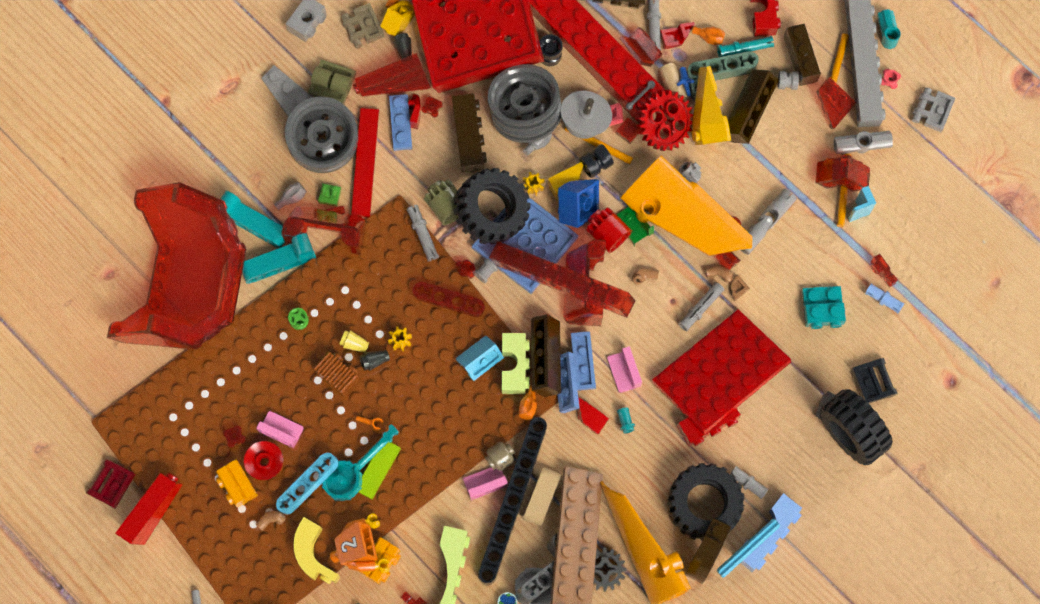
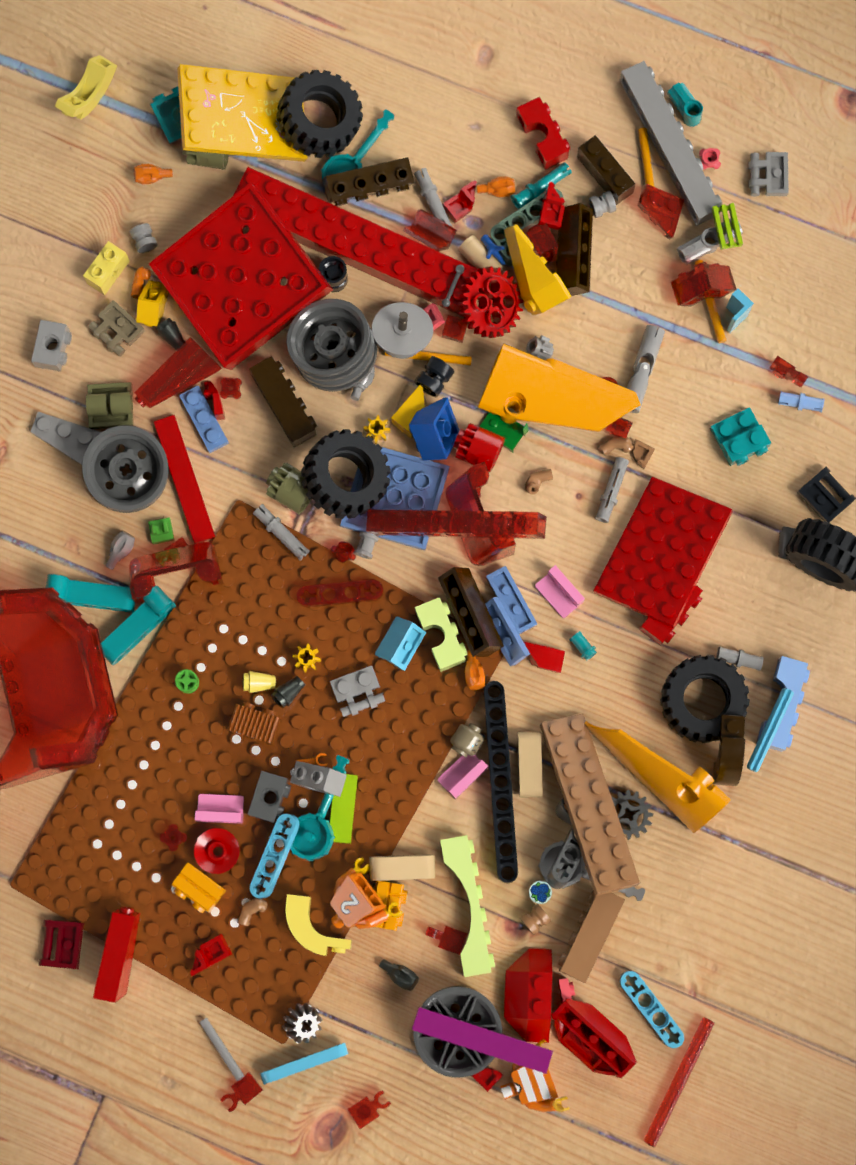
camera: 20 degrees left, 5 degrees up
(223, 540) = (210, 954): none -> red slope
(325, 424) = (269, 783): none -> dark grey brick
(367, 436) = (318, 778): none -> light grey brick
(404, 535) = (402, 867): none -> tan beam
(429, 376) = (354, 685): none -> light grey plate
(726, 90) = (543, 242): none -> clear red brick
(745, 67) = (552, 208): none -> red slope
(883, 121) = (723, 208): none -> lime tile

